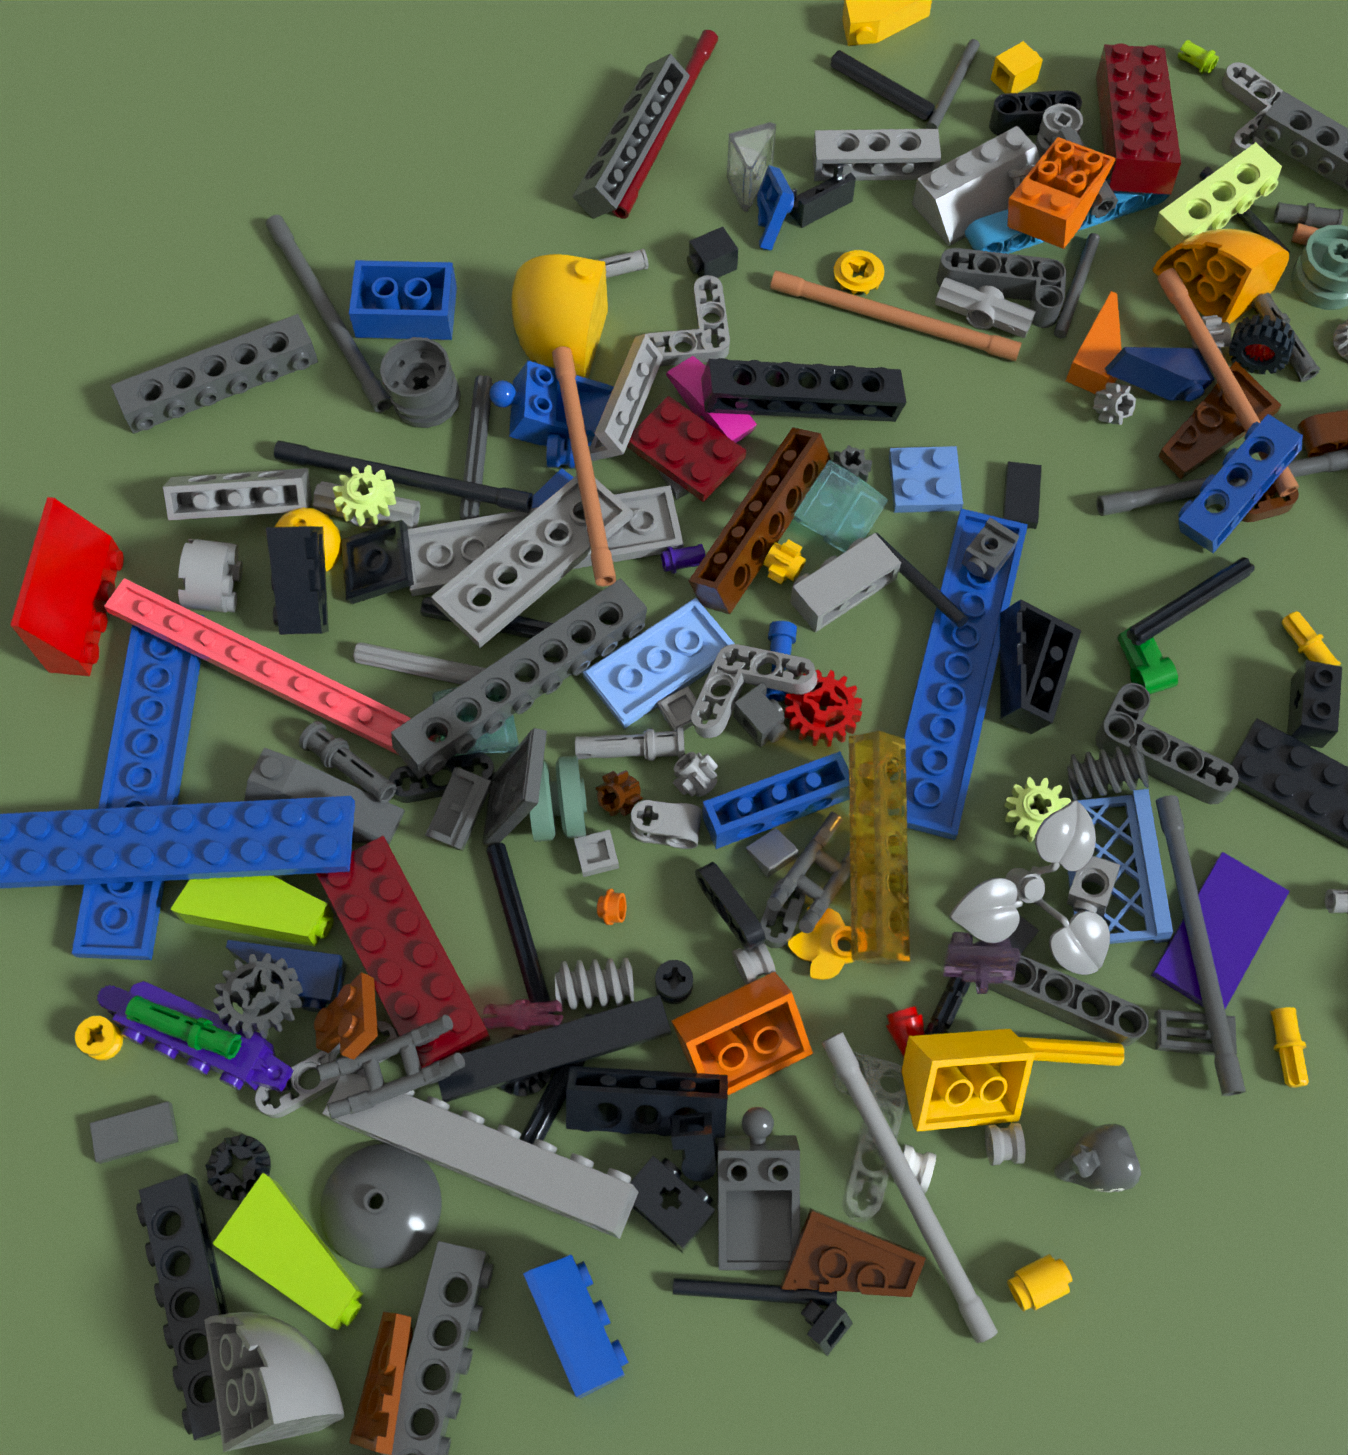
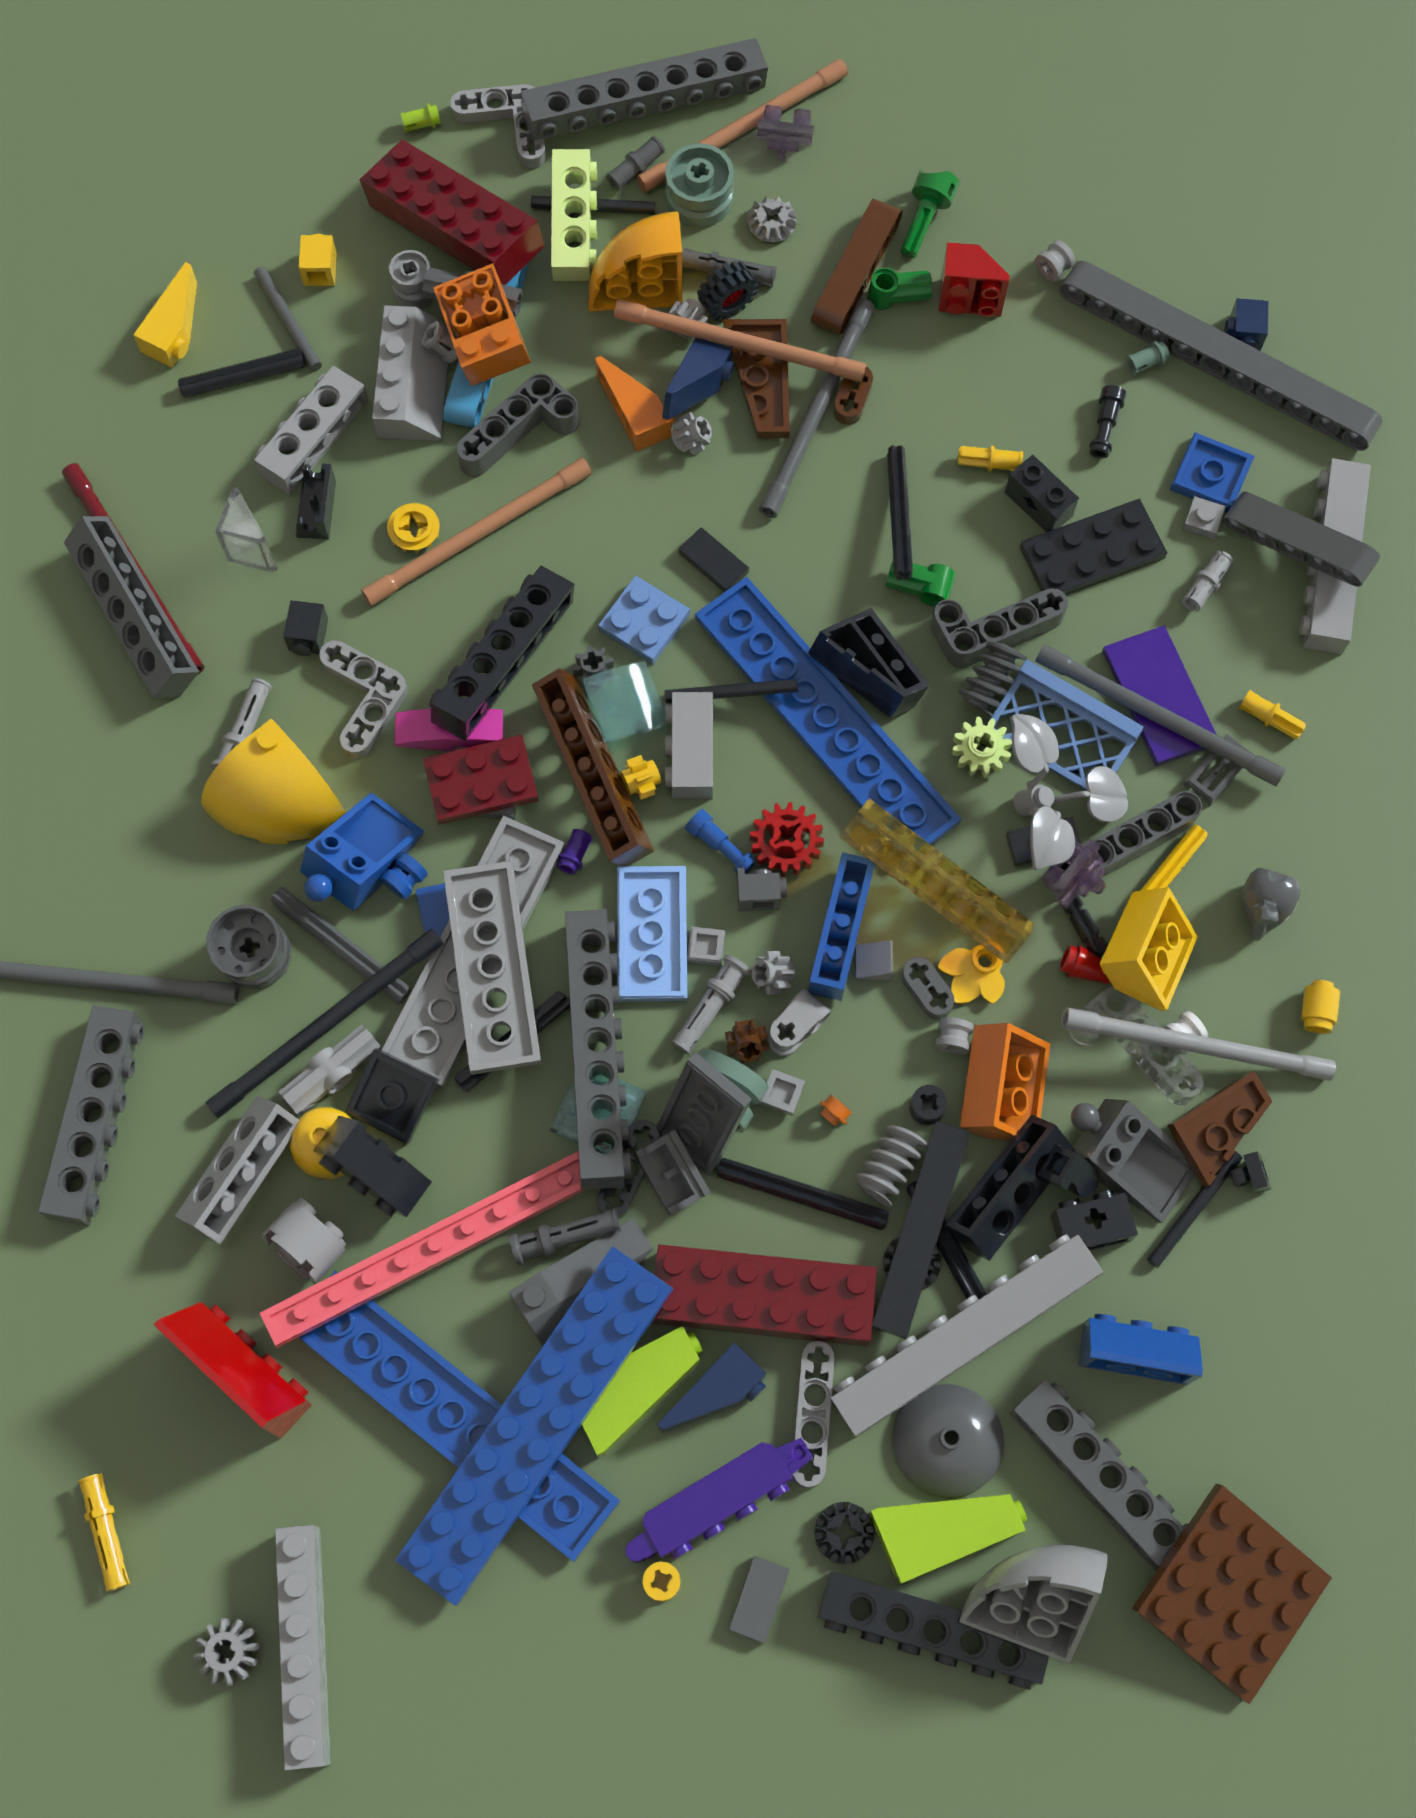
camera: 55 degrees left, 5 degrees up
(196, 1032) = (720, 1496): green pin -> none
(269, 1002) = (737, 1413): dark grey gear -> none
(349, 1019) = (792, 1362): dark orange plate -> none
(364, 495) = (339, 1073): yellowish green gear -> none
(369, 1058) = (843, 1371): dark grey piece -> none
(381, 1392) = (1092, 1518): dark orange wing -> none
(403, 299) = (148, 907): blue brick -> none
(414, 663) = (514, 1121): light grey axle -> none
(523, 1014) = (878, 1233): clear pink pin -> none
(600, 554) = (538, 911): nougat piece -> none
(626, 399) = (404, 793): light grey fence -> none
(730, 906) = (901, 1021): black beam -> none
(738, 675) = (714, 883): light grey beam -> none
(774, 202) = (298, 544): blue wing -> none
(796, 879) = (915, 959): dark grey piece -> none
(985, 307) = (527, 459): light grey piece -> none
(990, 550) = (748, 609): dark grey brick -> none
(1005, 1144) = (1210, 958): light grey wheel -> none
(1027, 109) = (368, 293): black beam -> none
(1077, 285) = (558, 374): dark grey bar -> none
(1097, 871) = (1072, 739): light grey brick -> none
(1212, 529) = (831, 350): blue brick -> none

